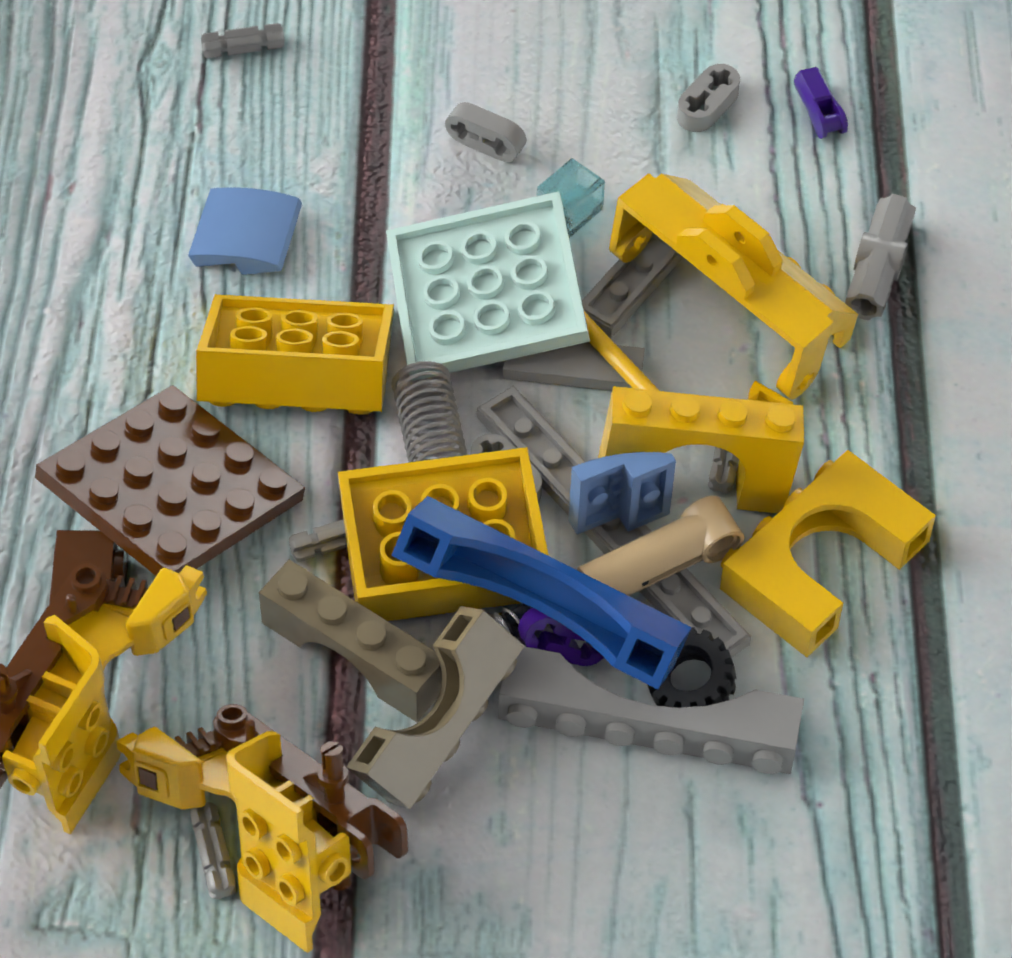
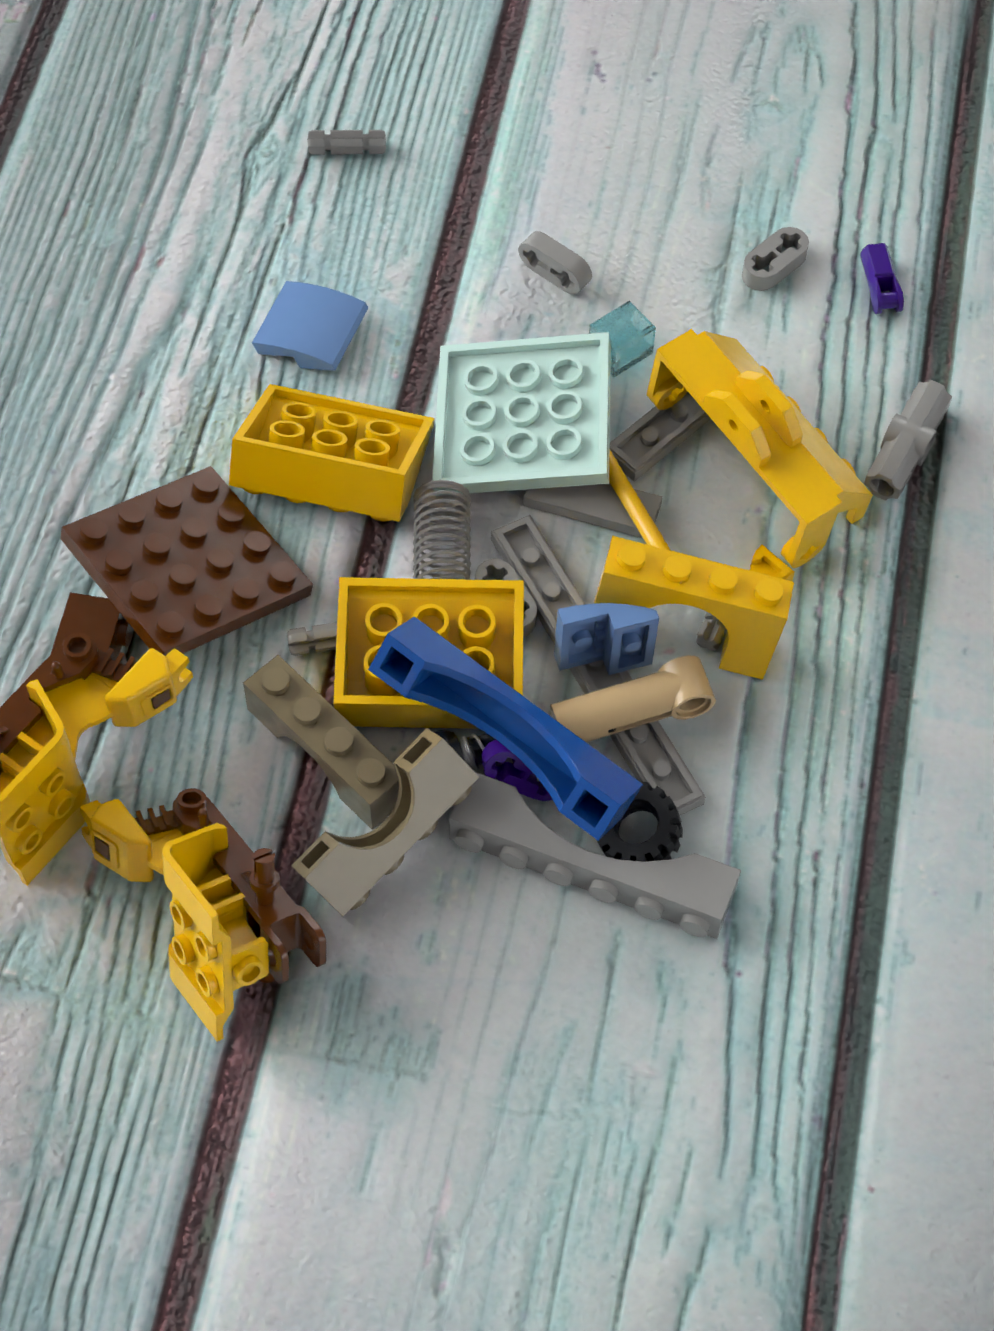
camera: 10 degrees right, 5 degrees up
(213, 851) = (153, 925): light grey axle -> none
(842, 498) = (821, 674): yellow arch -> none

